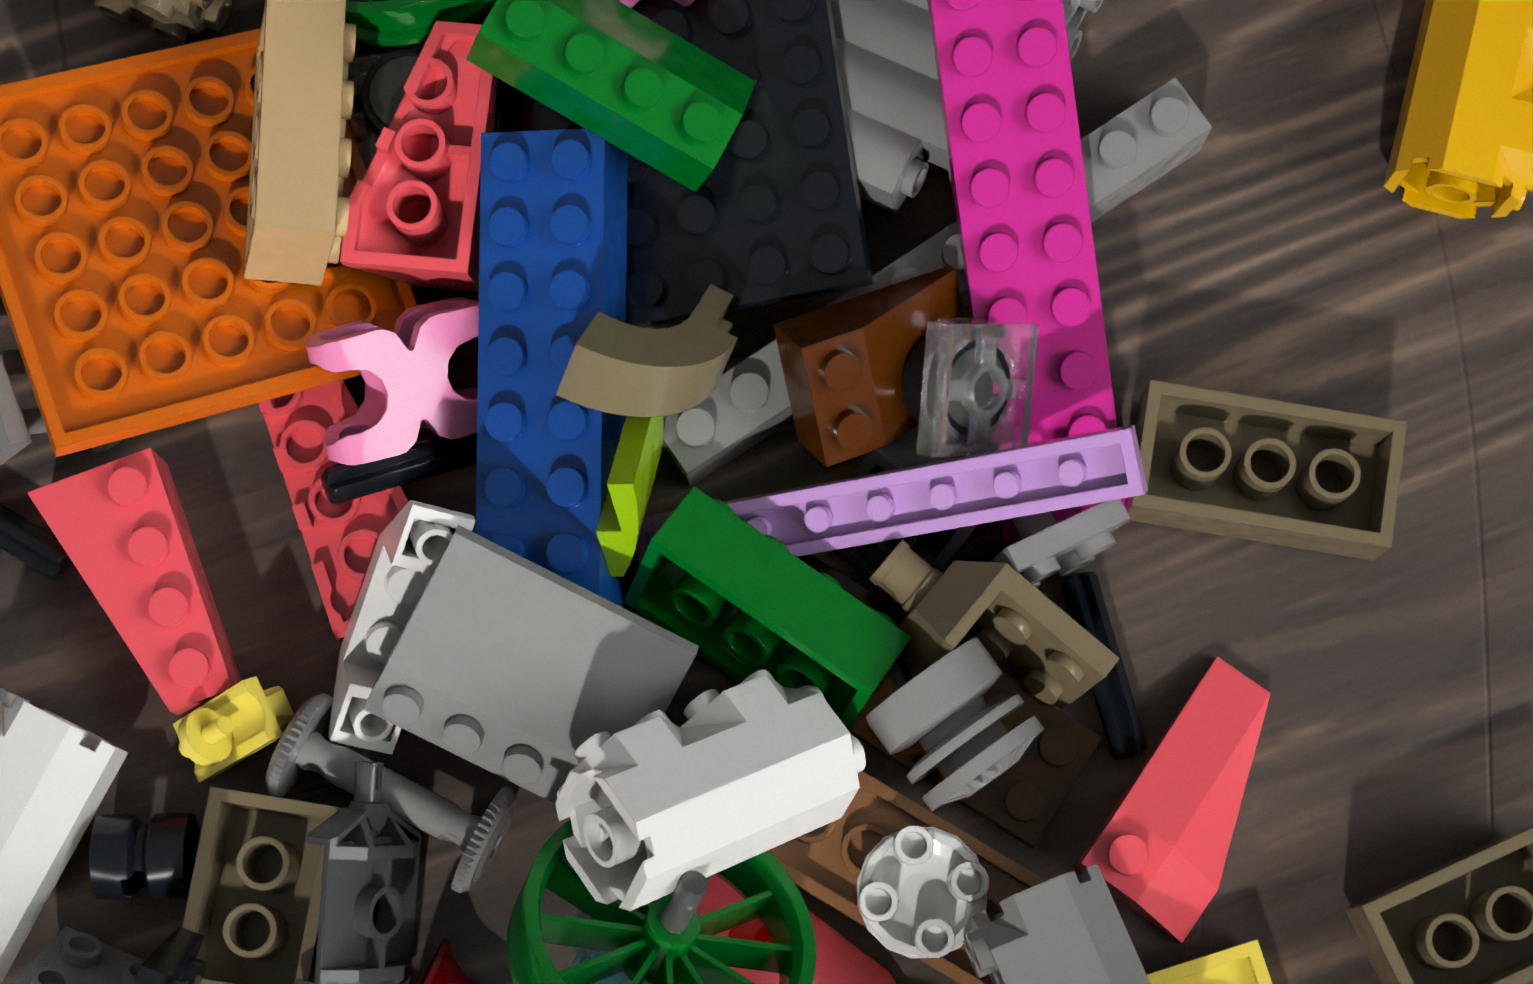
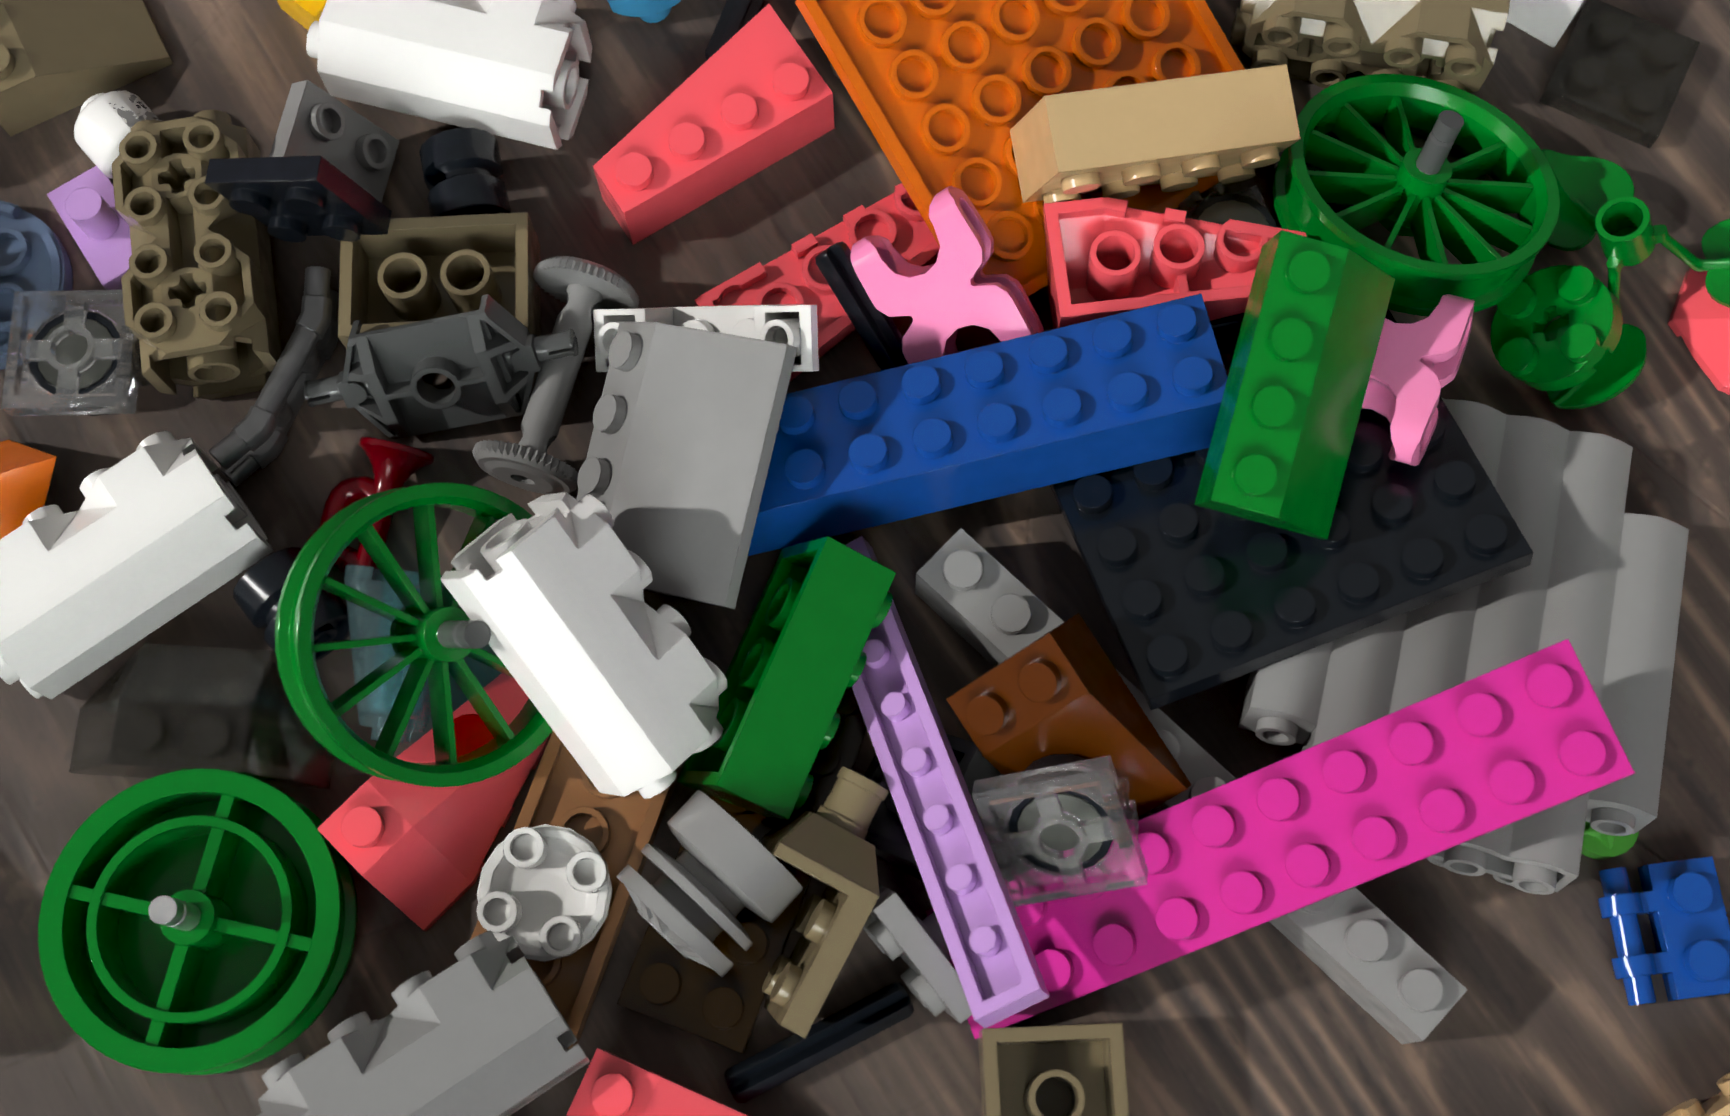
camera: 80 degrees right, 5 degrees down
(232, 727) = (589, 221): light yellow hips -> none
(629, 490) = (892, 514): lime slope -> none
(651, 369) = (996, 500): dark tan arch -> none

